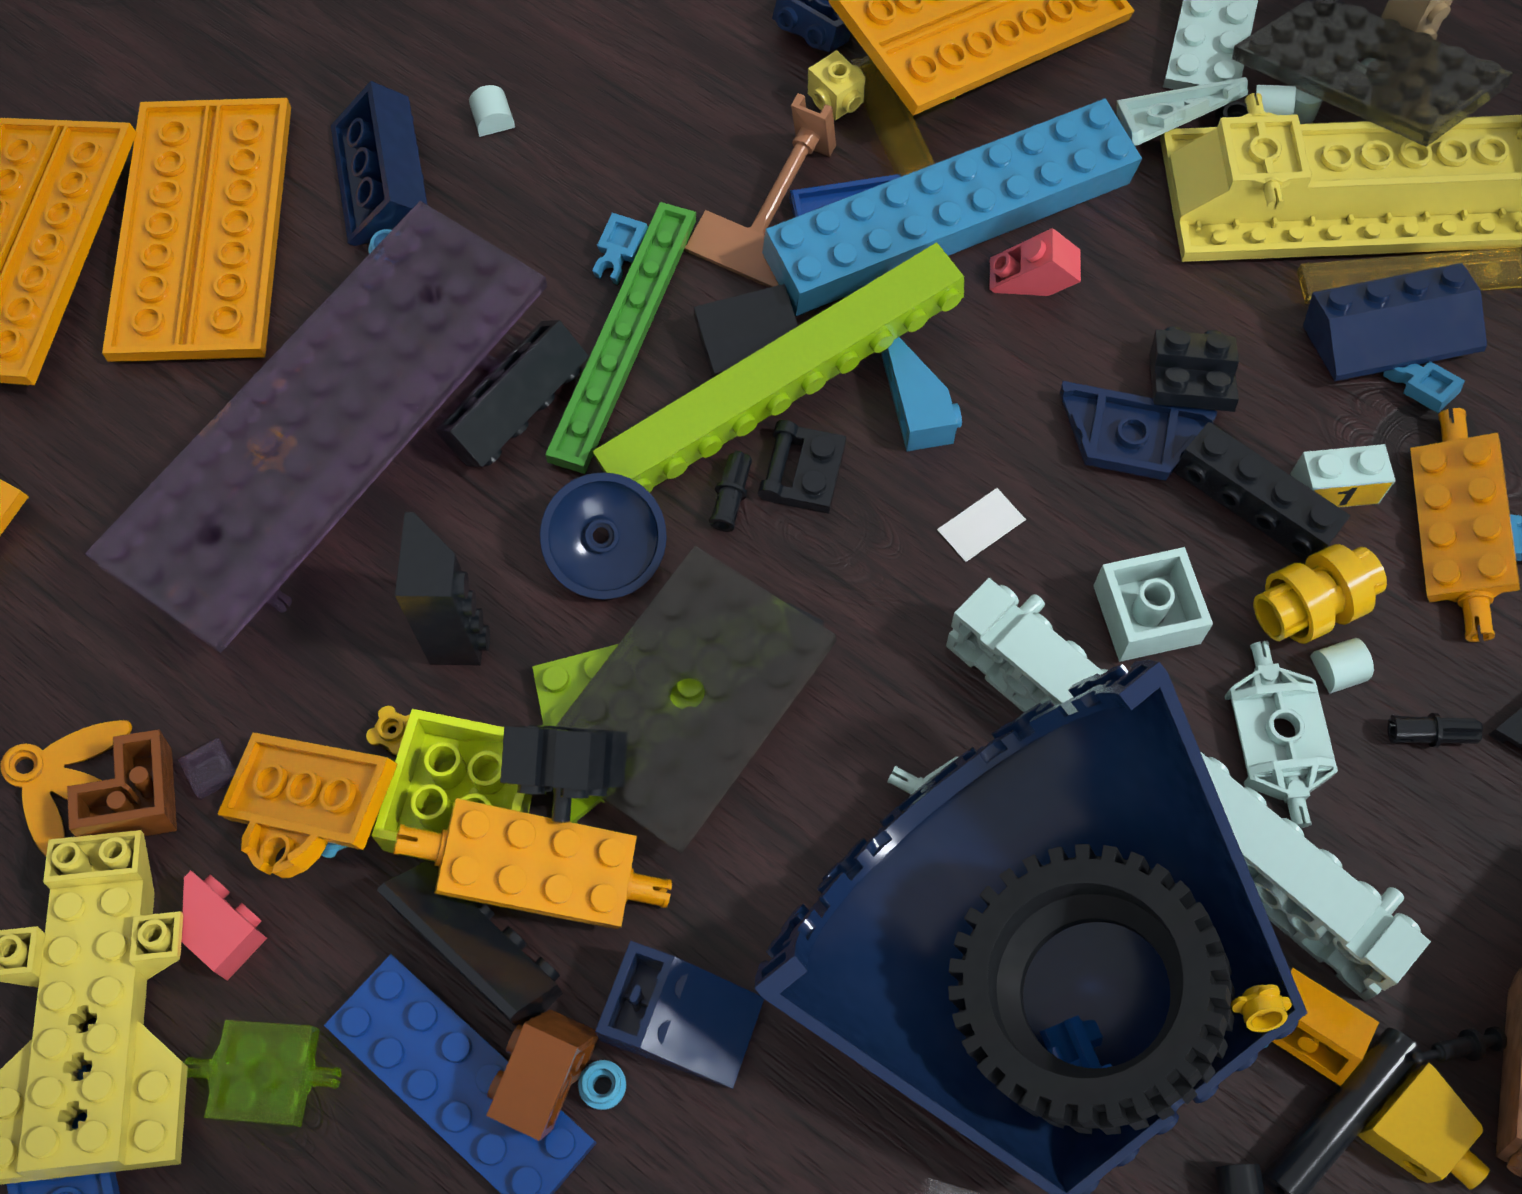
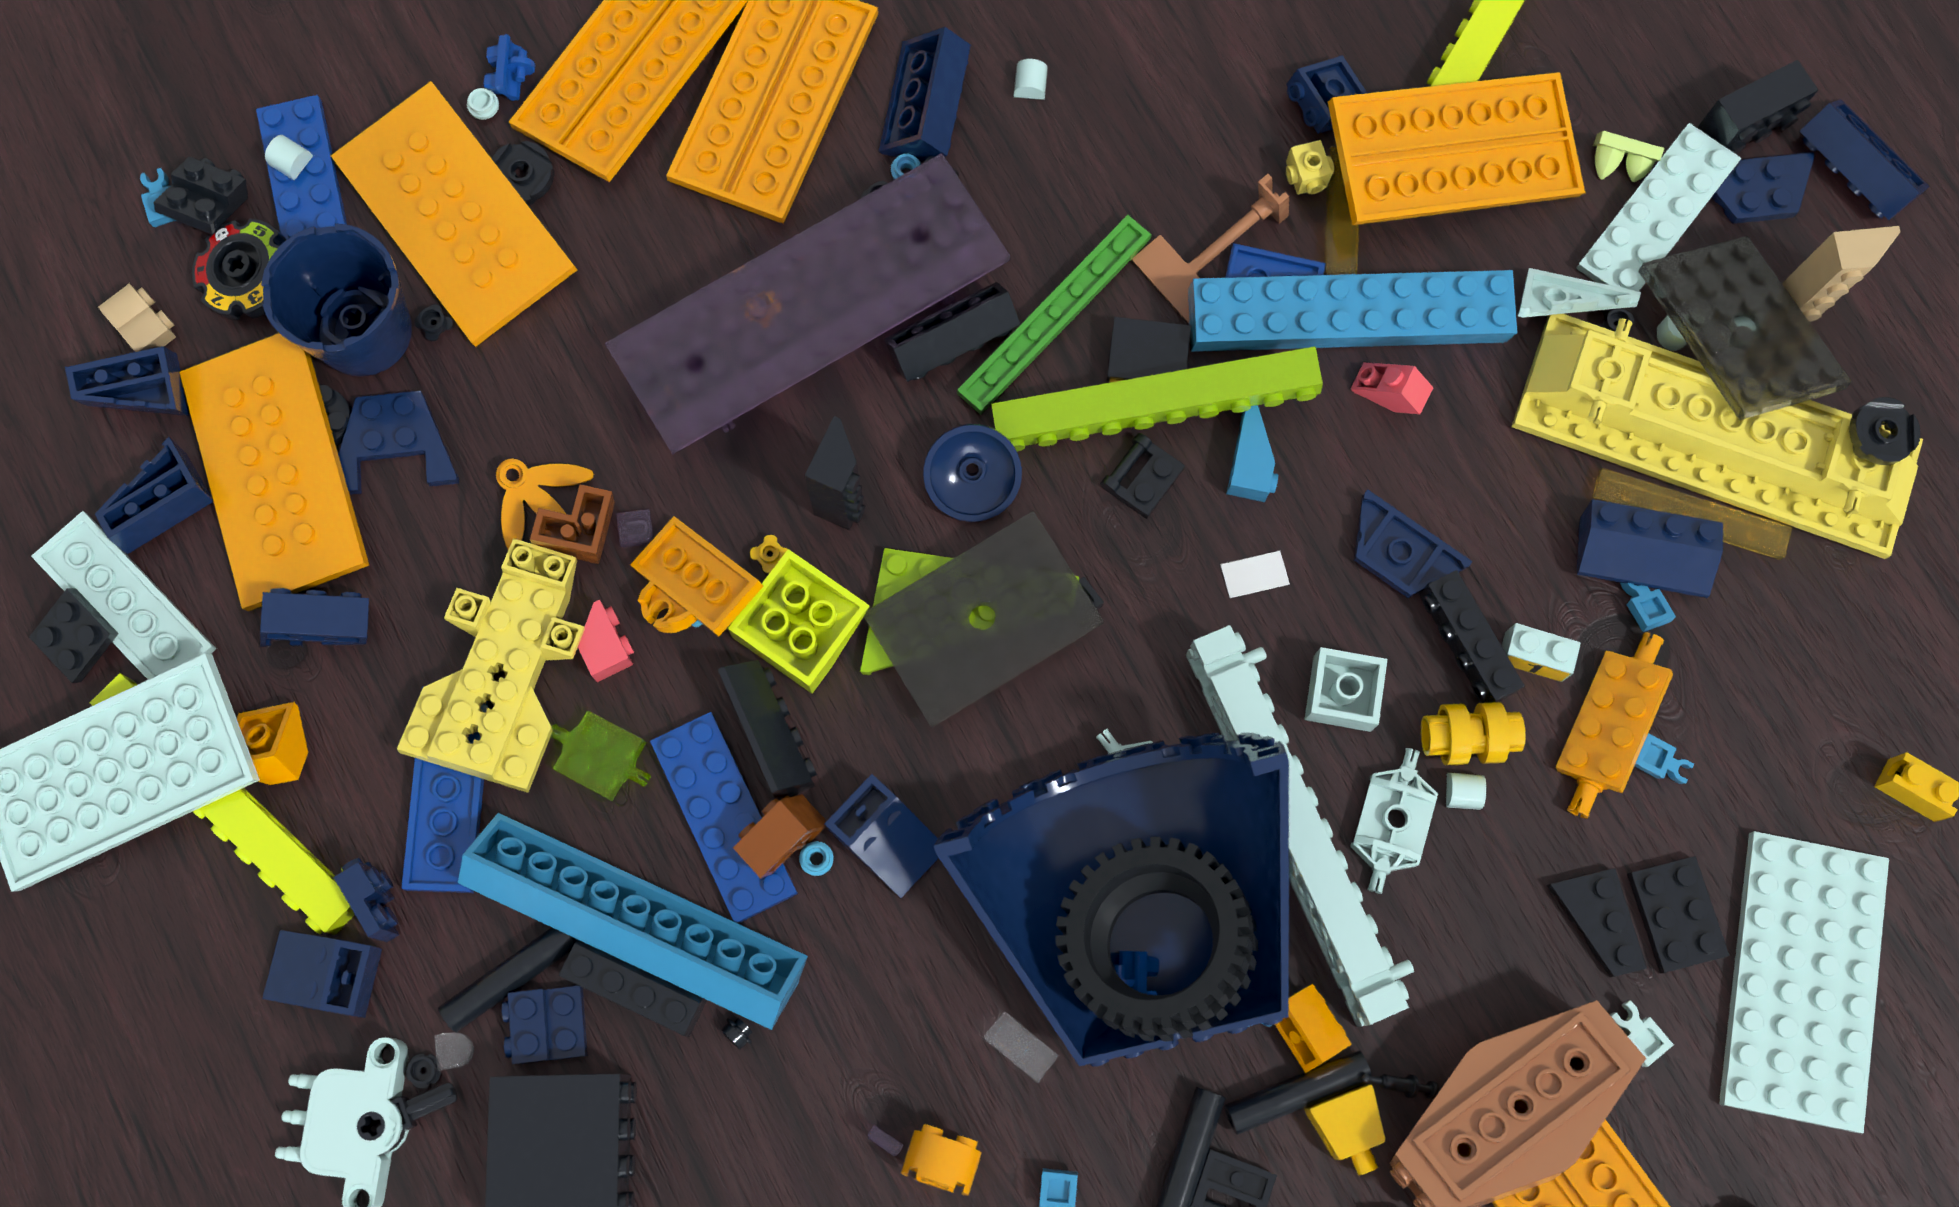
camera: 20 degrees right, 10 degrees up
(534, 864) = (829, 694): light orange plate -> none
(564, 762) = (877, 633): black brick -> none
(619, 243) = (1084, 236): dark azure plate -> none
(730, 491) = (1081, 473): black axle -> none
(1194, 369) = (1471, 521): black plate -> none
(1262, 1007) = (1259, 1000): yellow plate -> none
(1277, 98) = (1649, 327): light aqua brick -> none
(1434, 730) = (1506, 865): black axle -> none

